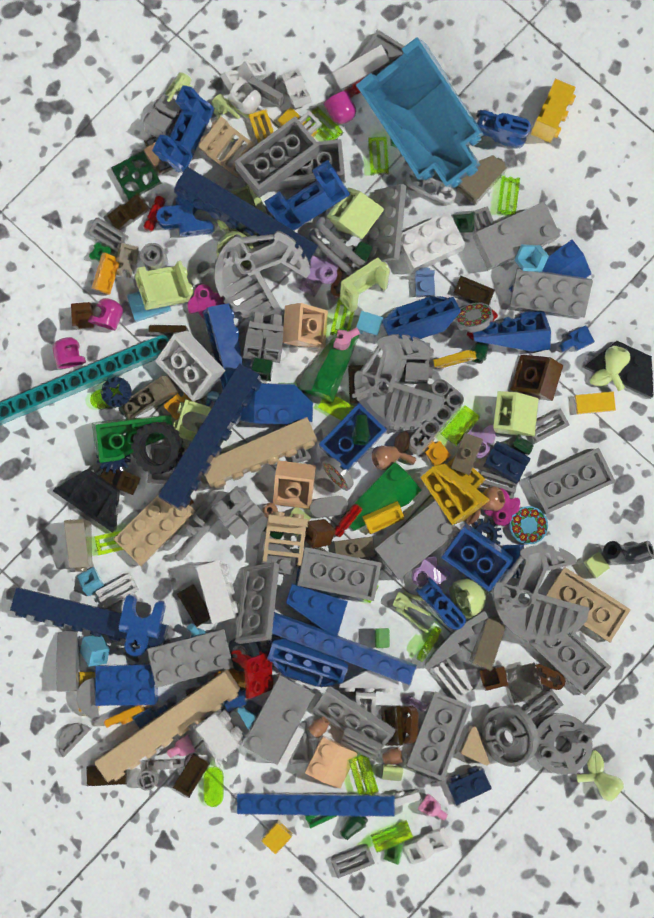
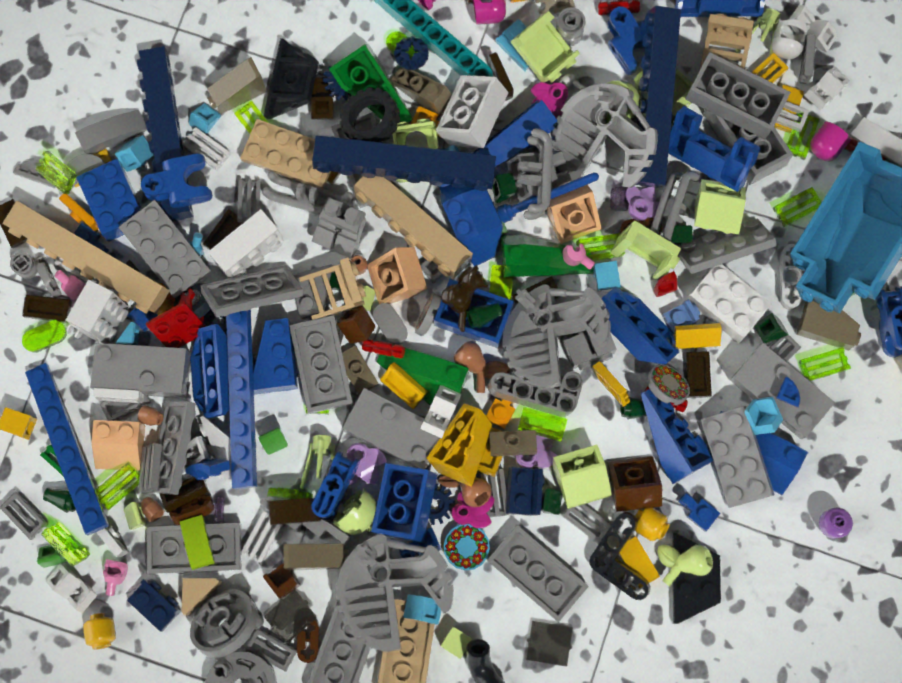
camera: 65 degrees right, 5 degrees down
(85, 722) = (55, 176): none -> clear neon green tile
(164, 568) = (249, 185): none -> light grey tile
(268, 331) = (544, 168): none -> light grey piece
(282, 375) = (507, 212): none -> blue piece
(337, 440) = (460, 294): none -> dark brown animal
(383, 696) = (208, 468): none -> blue slope
(395, 282) = (666, 284): none -> red tile
(420, 497) = (440, 411): none -> white slope
(437, 730) = (197, 542): none -> lime slope
(445, 277) = (698, 335): none -> yellow tile
(447, 645) = (292, 511): none -> dark brown slope
(472, 836) = (99, 631): none -> yellow head
(523, 231) = (789, 393): none -> blue tile
(563, 579) = (422, 609): none -> medium azure panel
(572, 379) = (652, 524): none -> yellow head
(588, 421) = (613, 563): none -> black beam
(626, 496) = (549, 643): none -> clear smoke piece
(630, 245) = (828, 523): none -> medium lavender head

